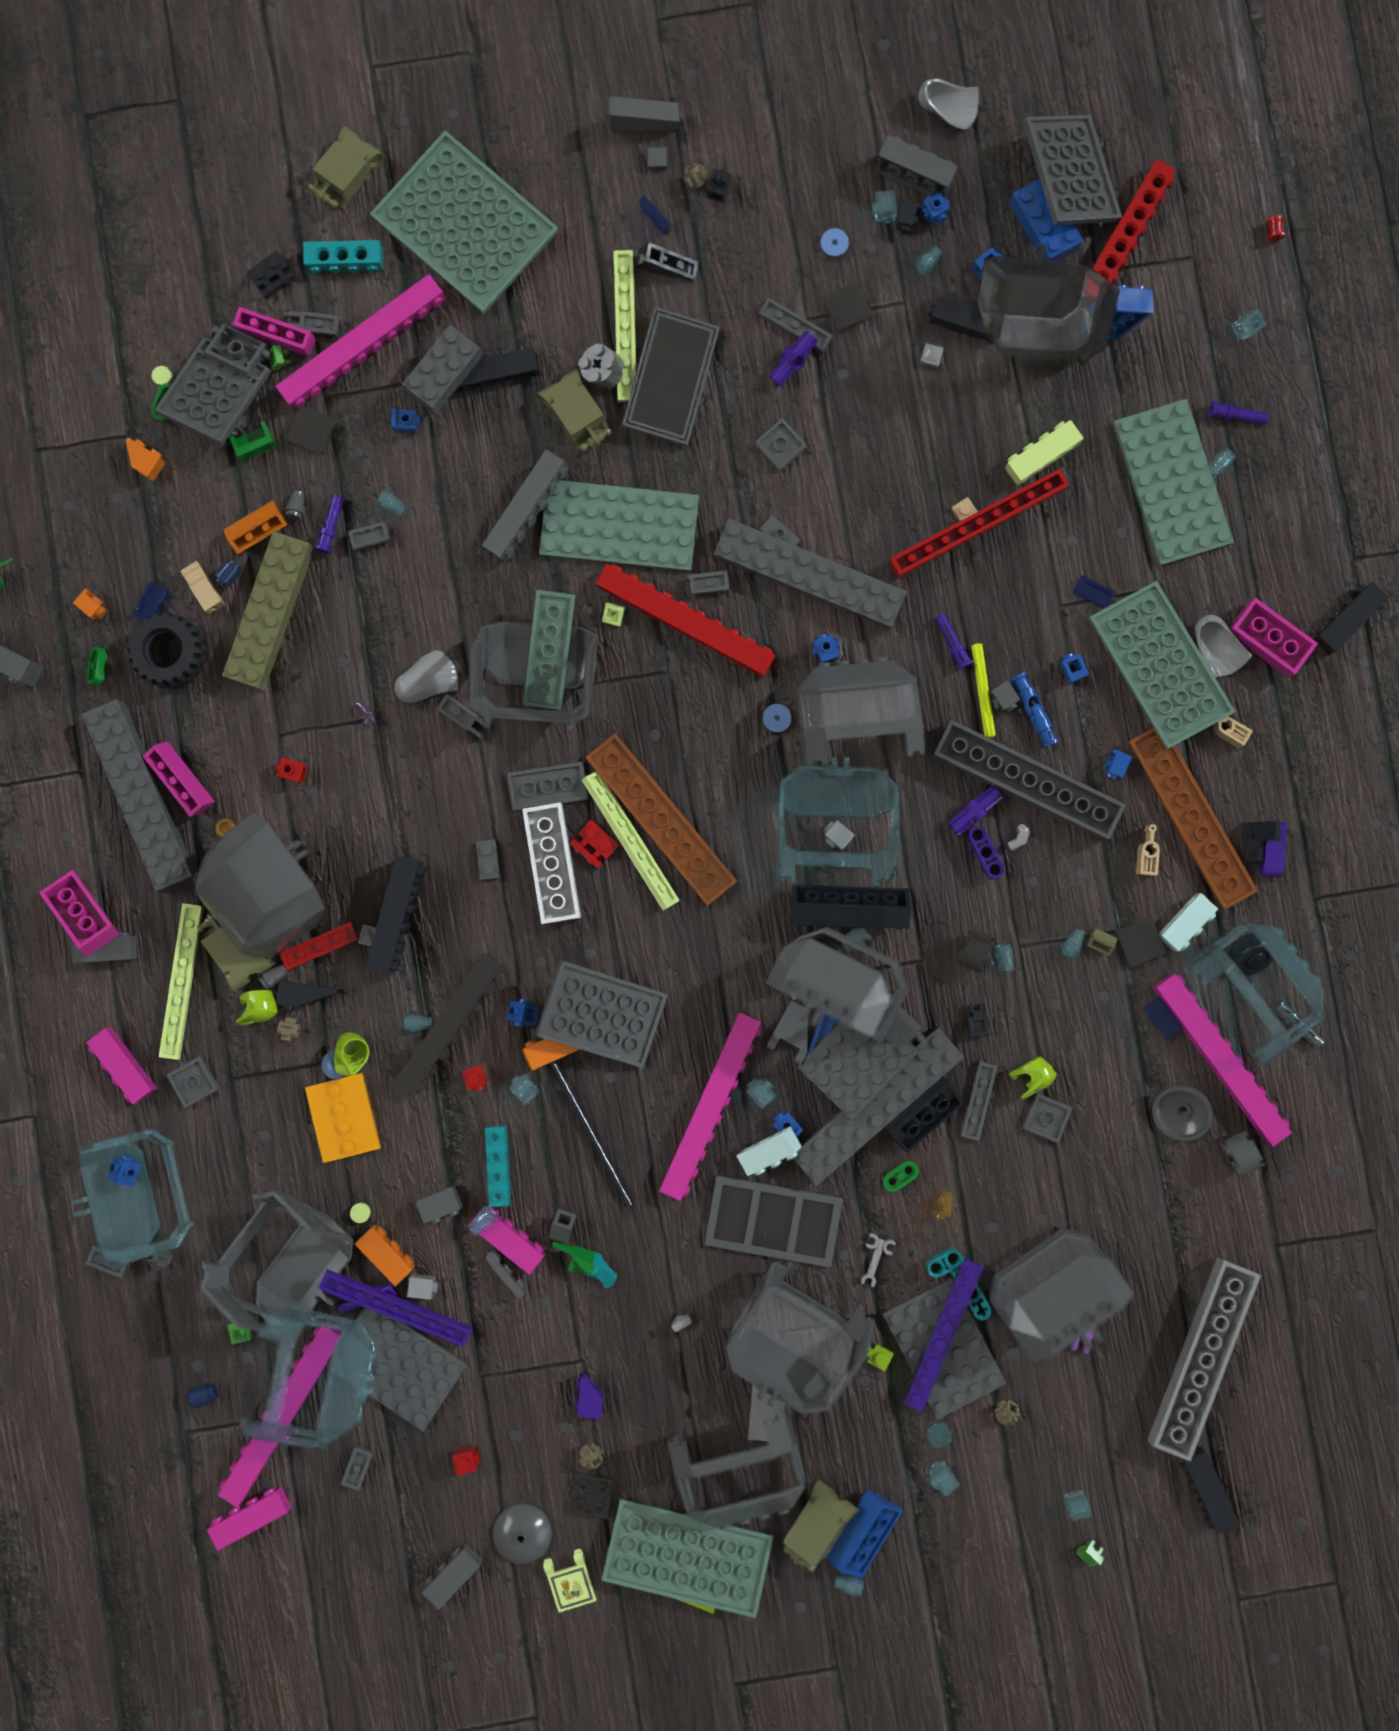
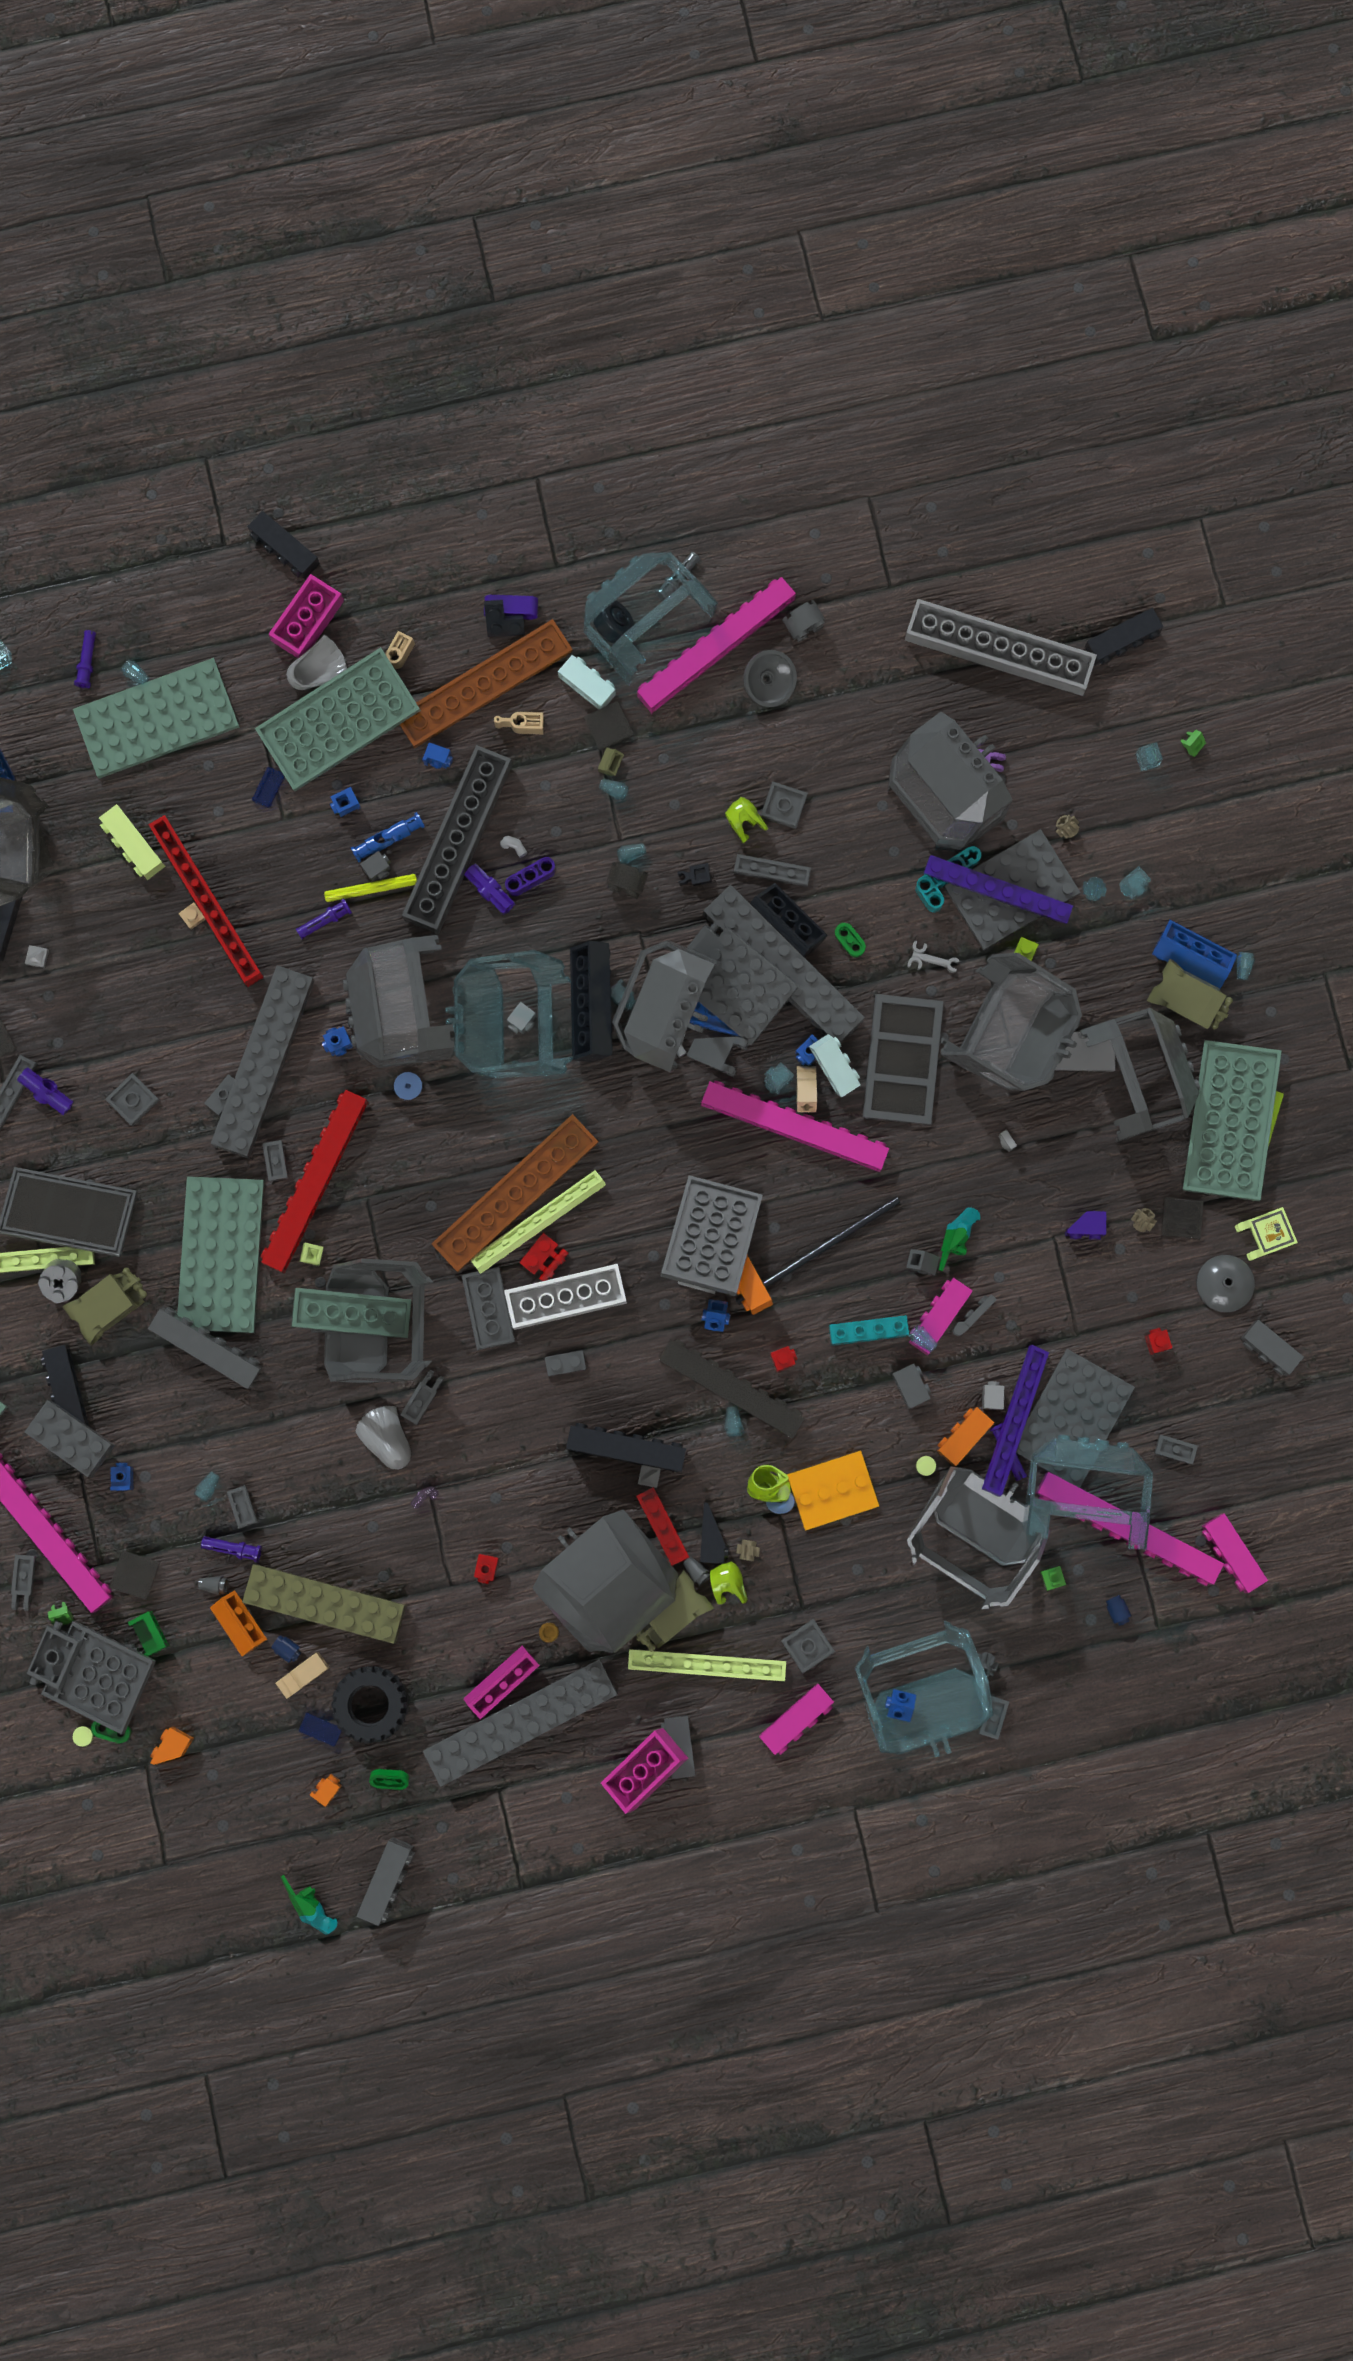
camera: 95 degrees left, 5 degrees down
(274, 331) = (34, 1618): dark pink brick -> none
(524, 1088) = (791, 1310): clear light blue brick -> none
(747, 1120) = (806, 1089): none -> tan piece
(945, 1202) = (872, 895): clear yellow bracket -> none
(1162, 1018) = (680, 702): clear blue tile -> none

